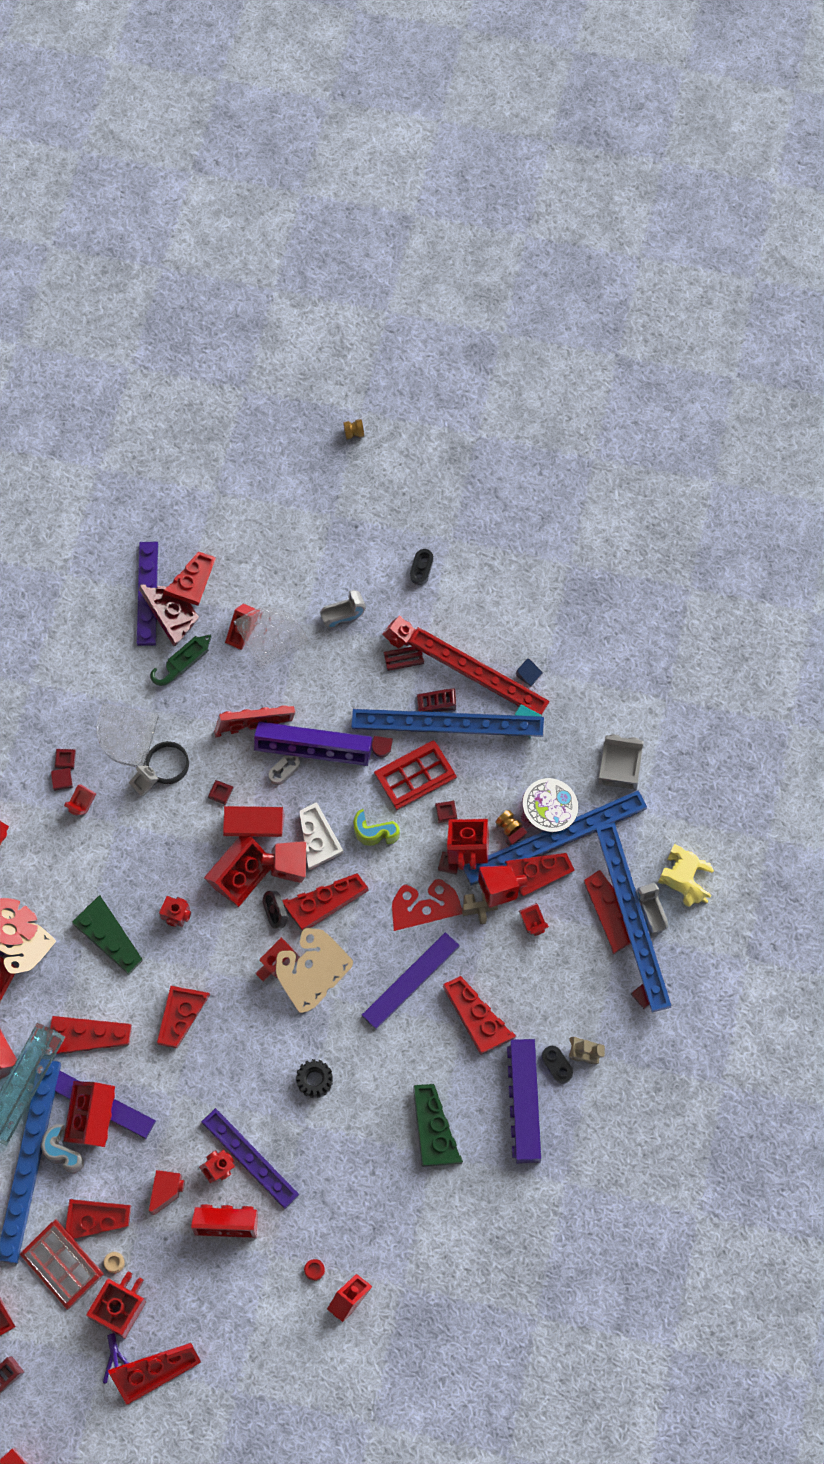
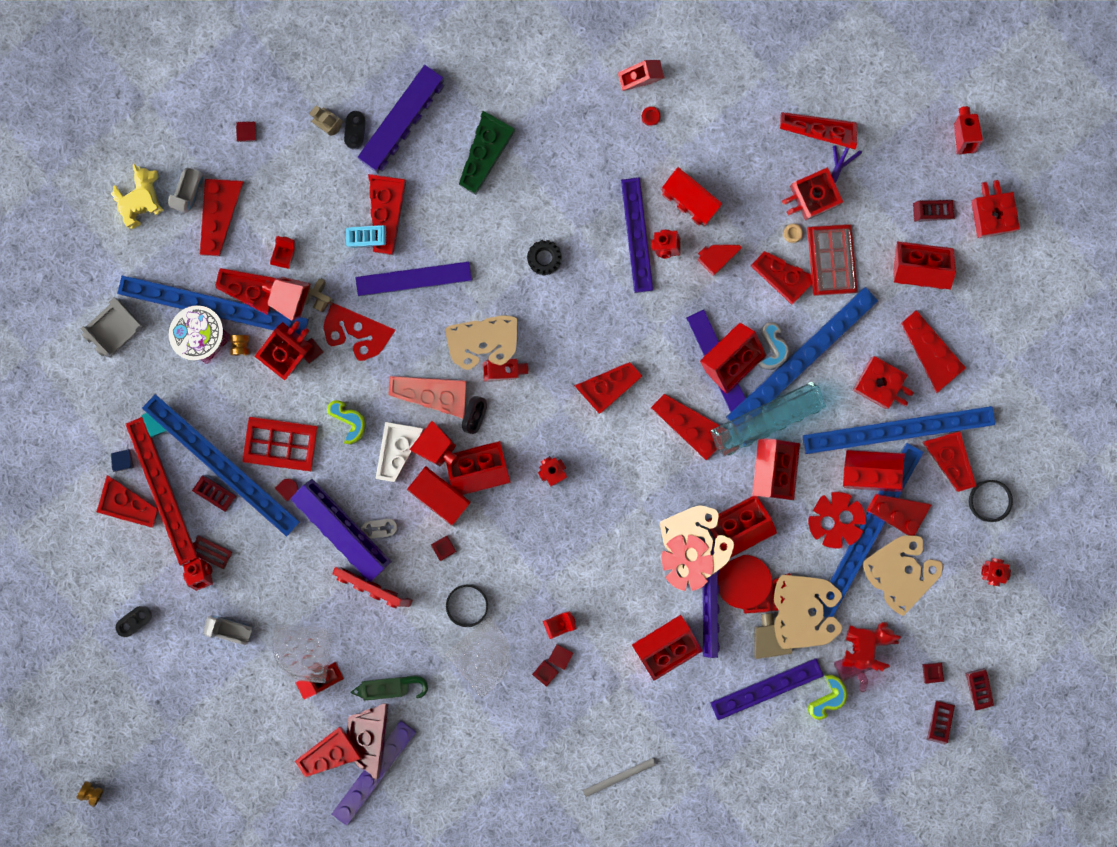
camera: 150 degrees left, 20 degrees up
(106, 933) = (617, 497): dark green wing -> none
(143, 779) = (497, 603): light grey bracket -> none
(446, 811) = (279, 394): dark red tile -> none
(484, 973) = (354, 236): none -> medium azure slope
(498, 643) = (125, 504): none -> red wing
(516, 836) = (243, 329): dark red tile -> none
(633, 918) = (206, 193): blue plate -> none

